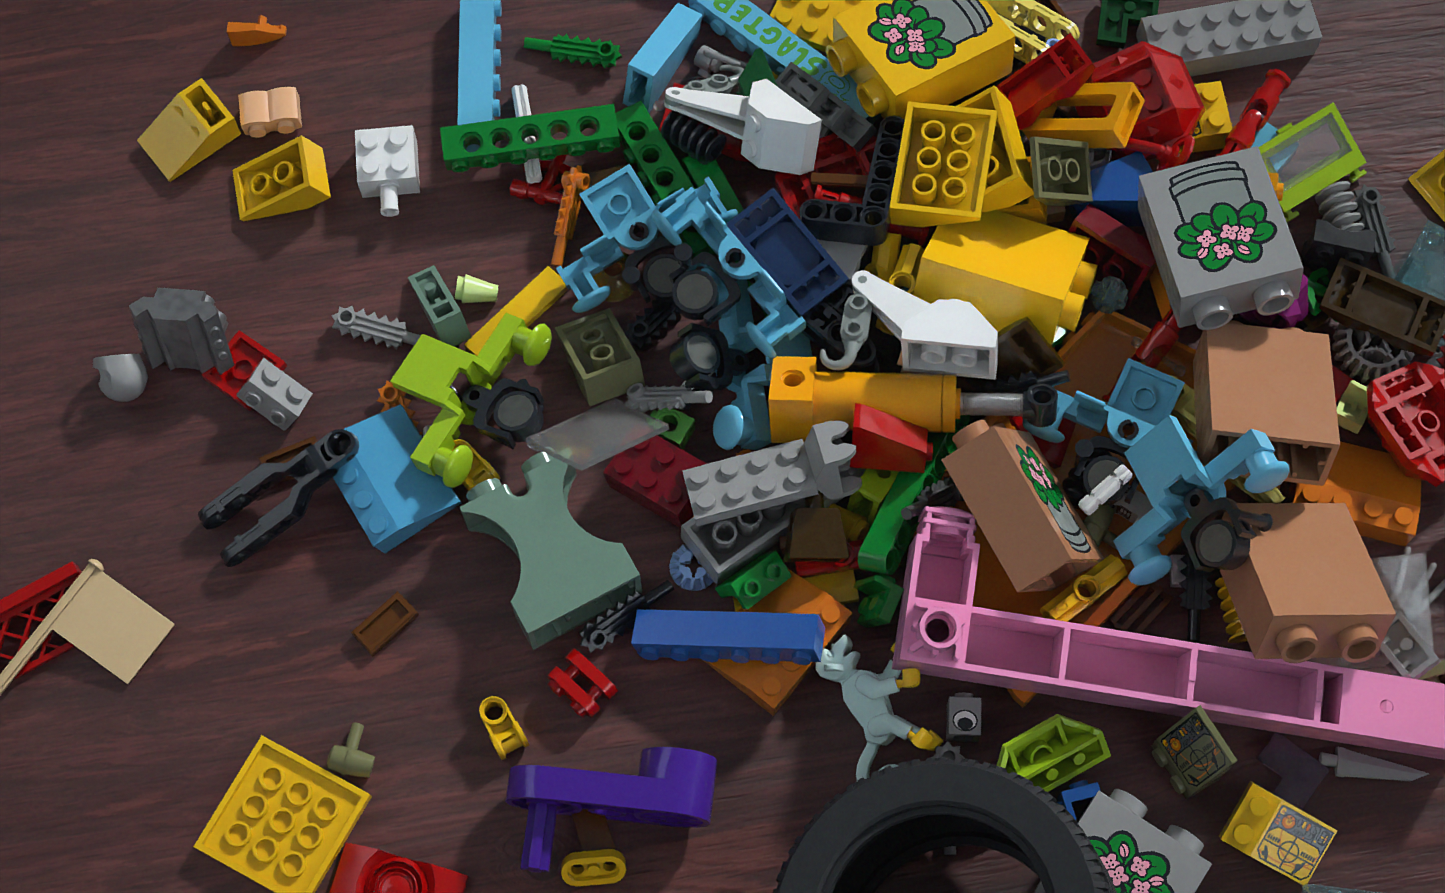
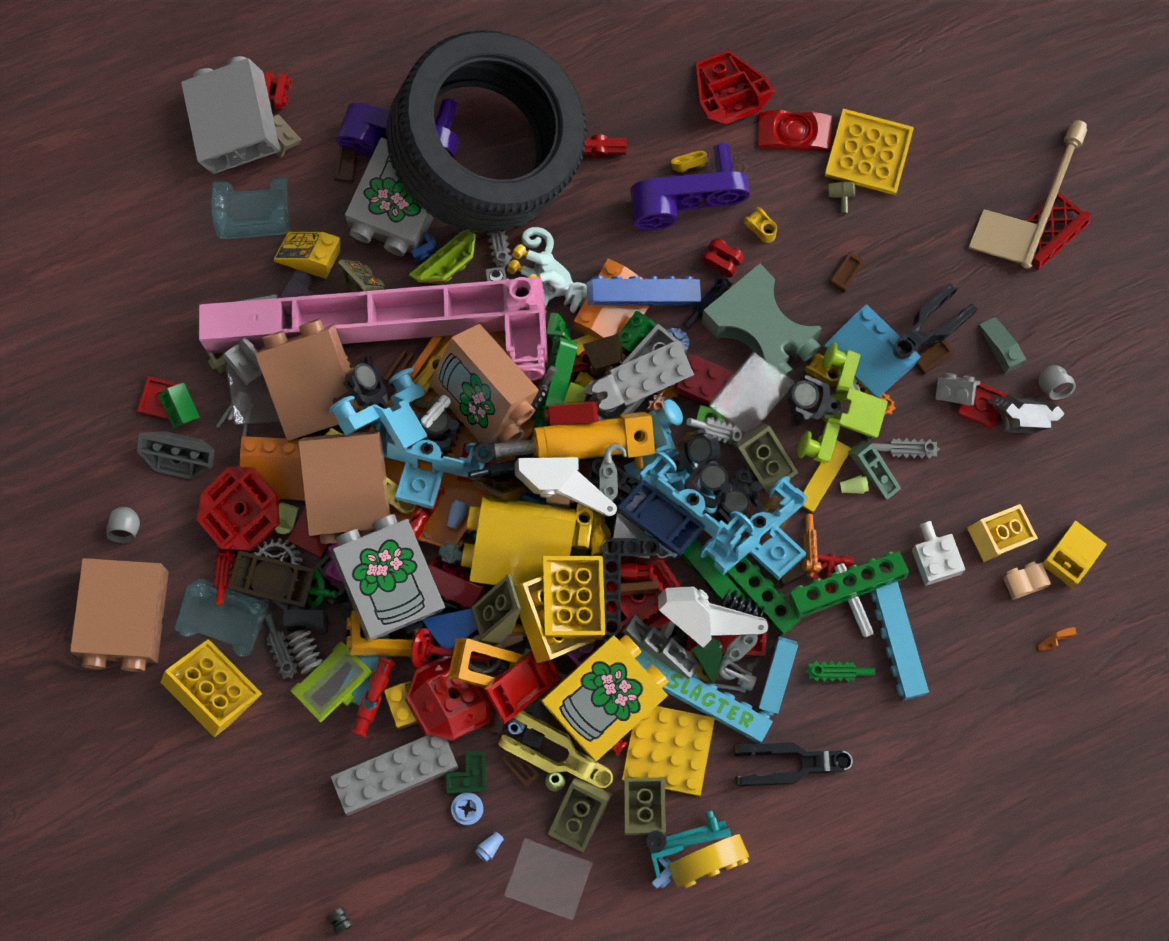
camera: 165 degrees right, 5 degrees up
(179, 453) = (1003, 345): none -> sand green slope
(1086, 364) = (457, 513): none -> light blue cone

